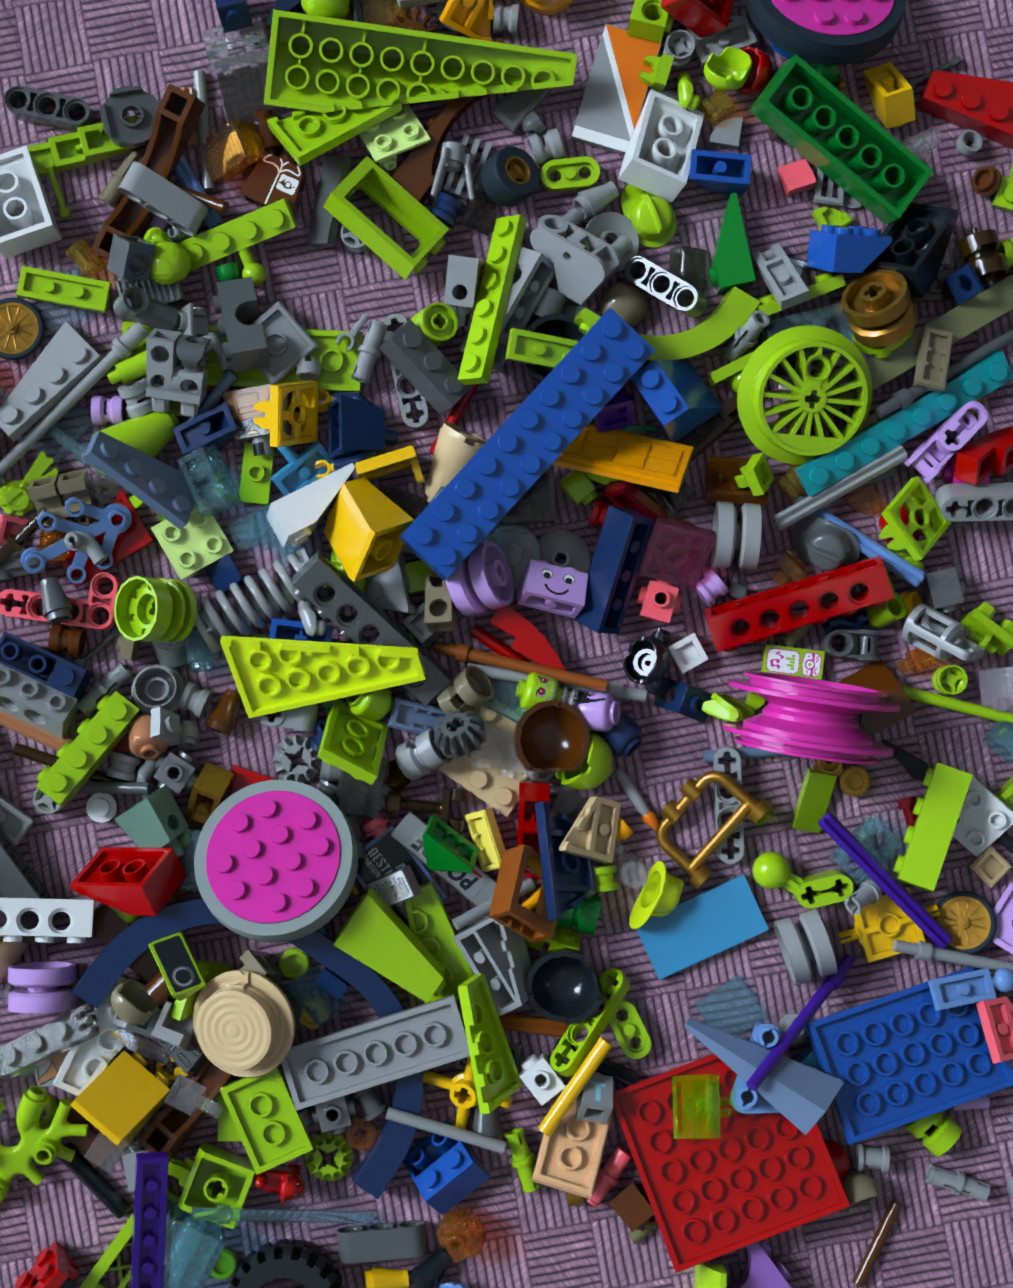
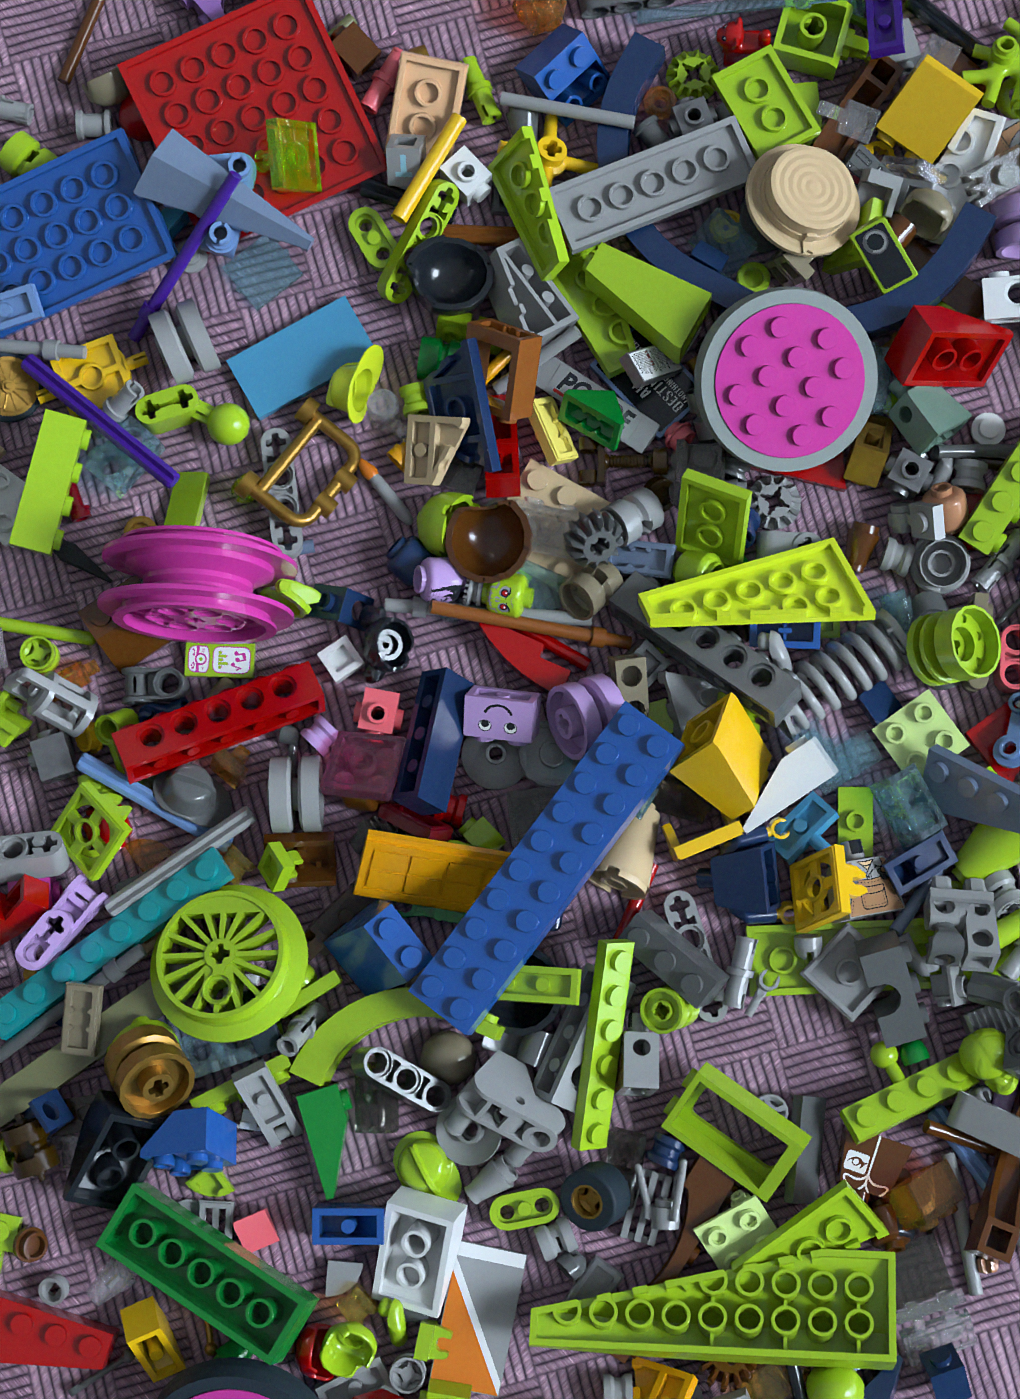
camera: 175 degrees right, 5 degrees down
(616, 412) = (442, 923): dark purple bracket -> none

